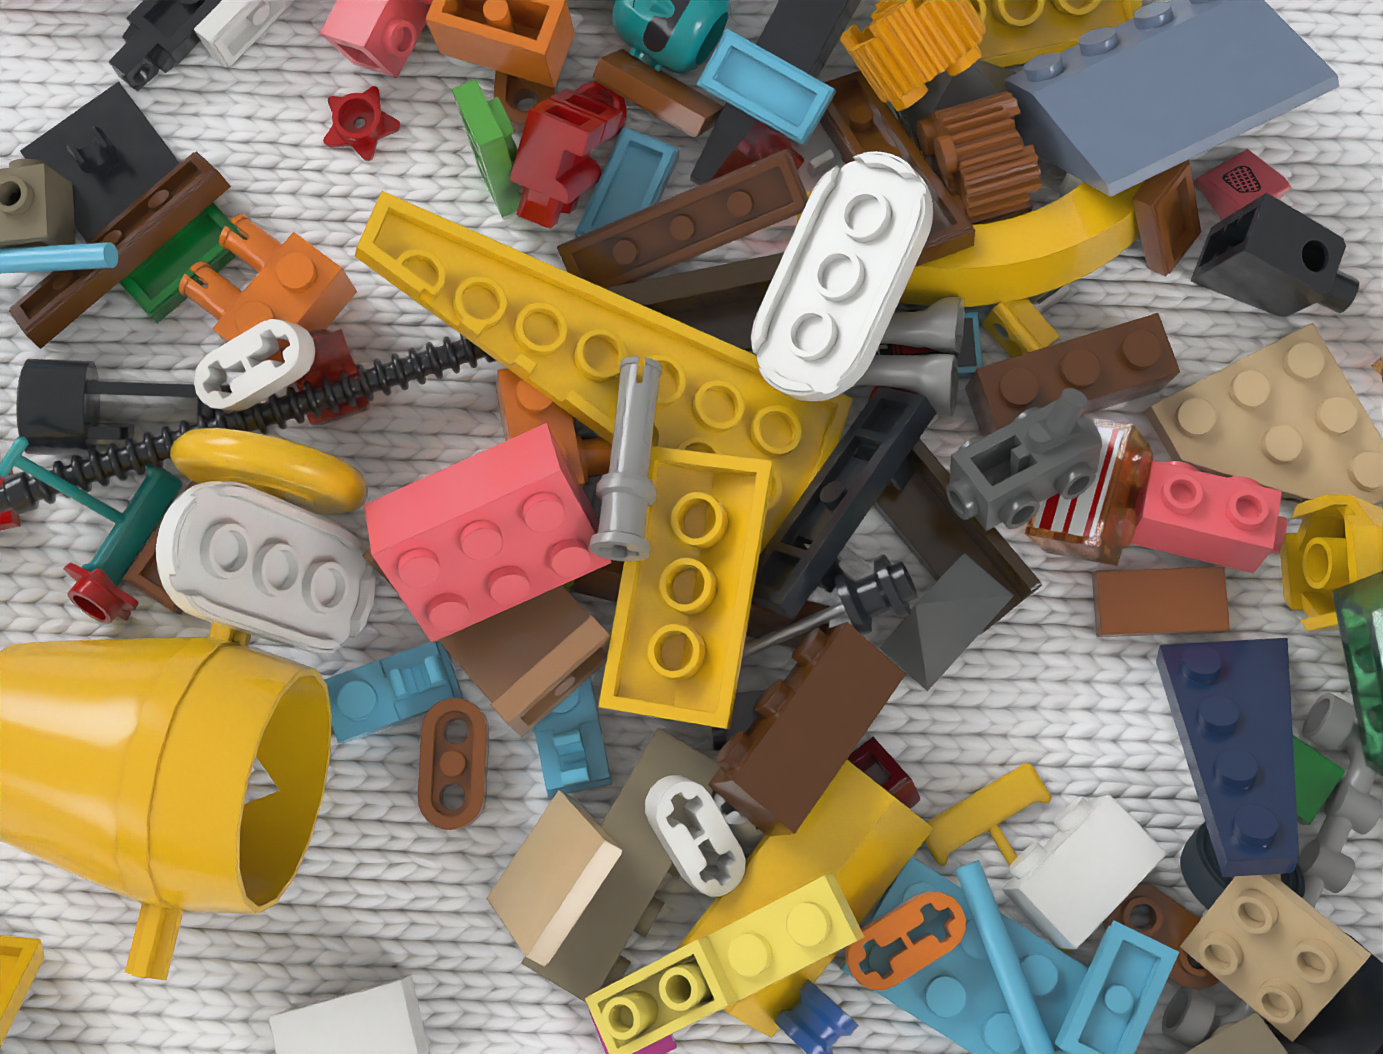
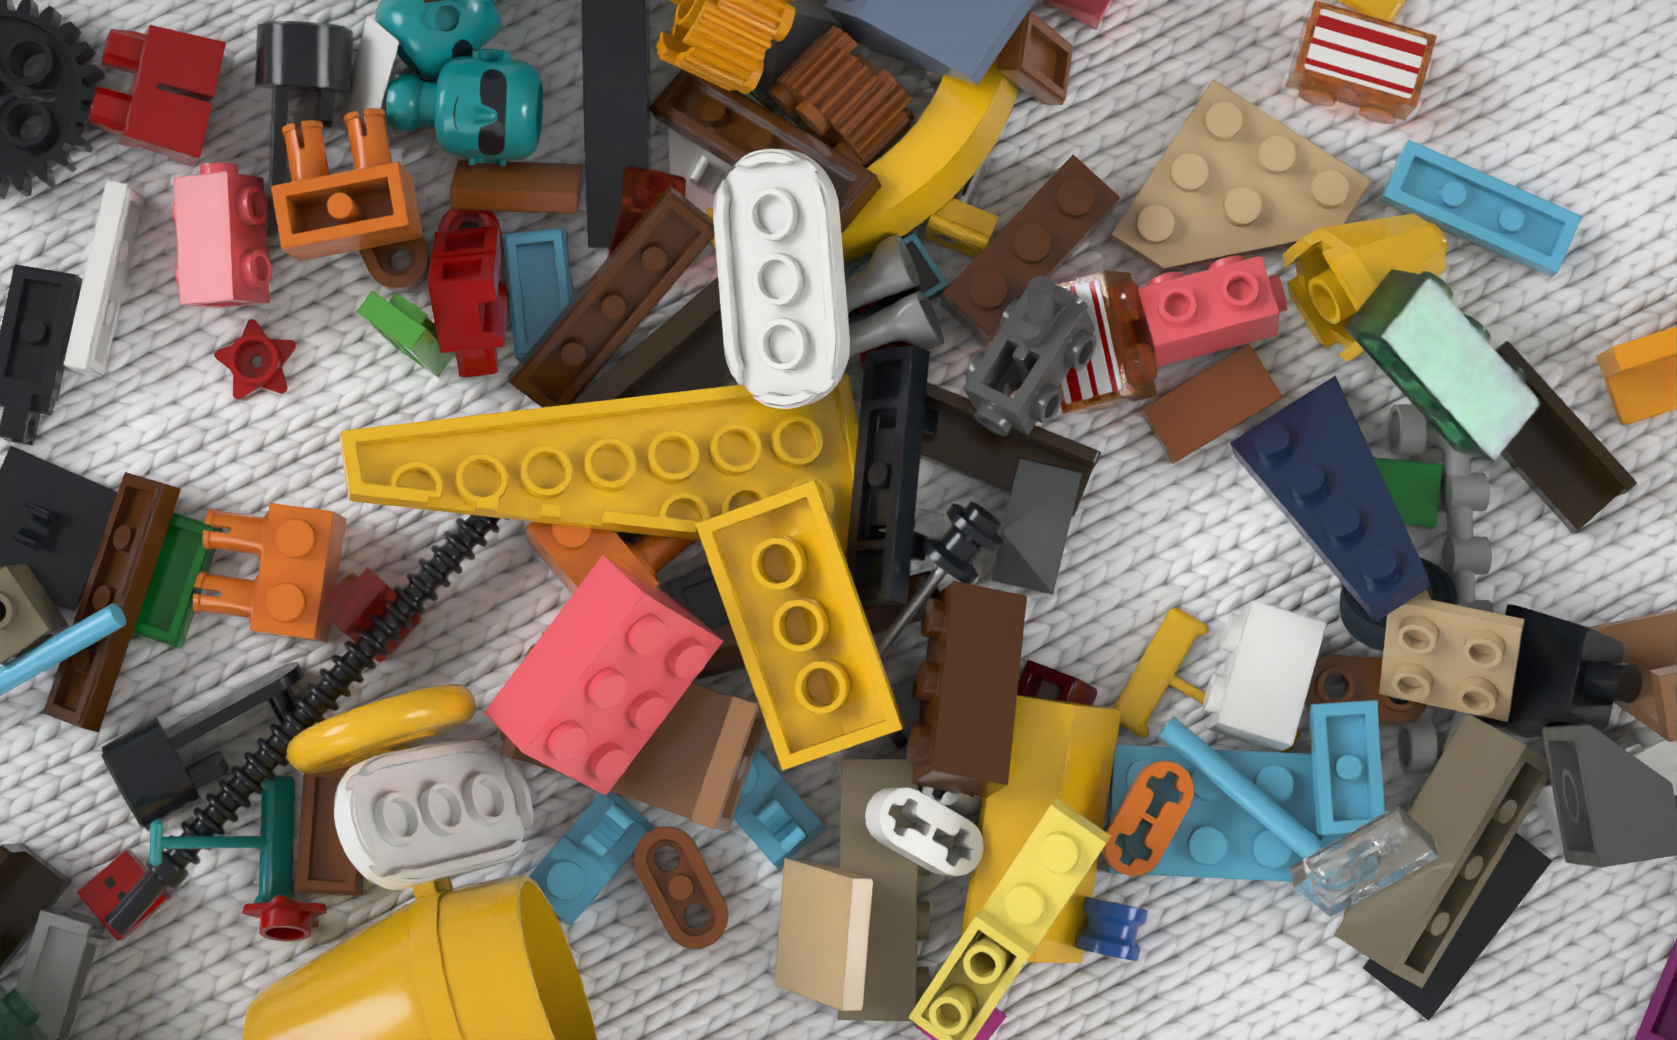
camera: 30 degrees left, 5 degrees up
(261, 376) = (324, 651): white beam -> none
(626, 487) = (703, 572): light grey pin -> none
(766, 87) = (615, 134): medium azure tile -> none
(1275, 260) = (1151, 45): black torso -> none

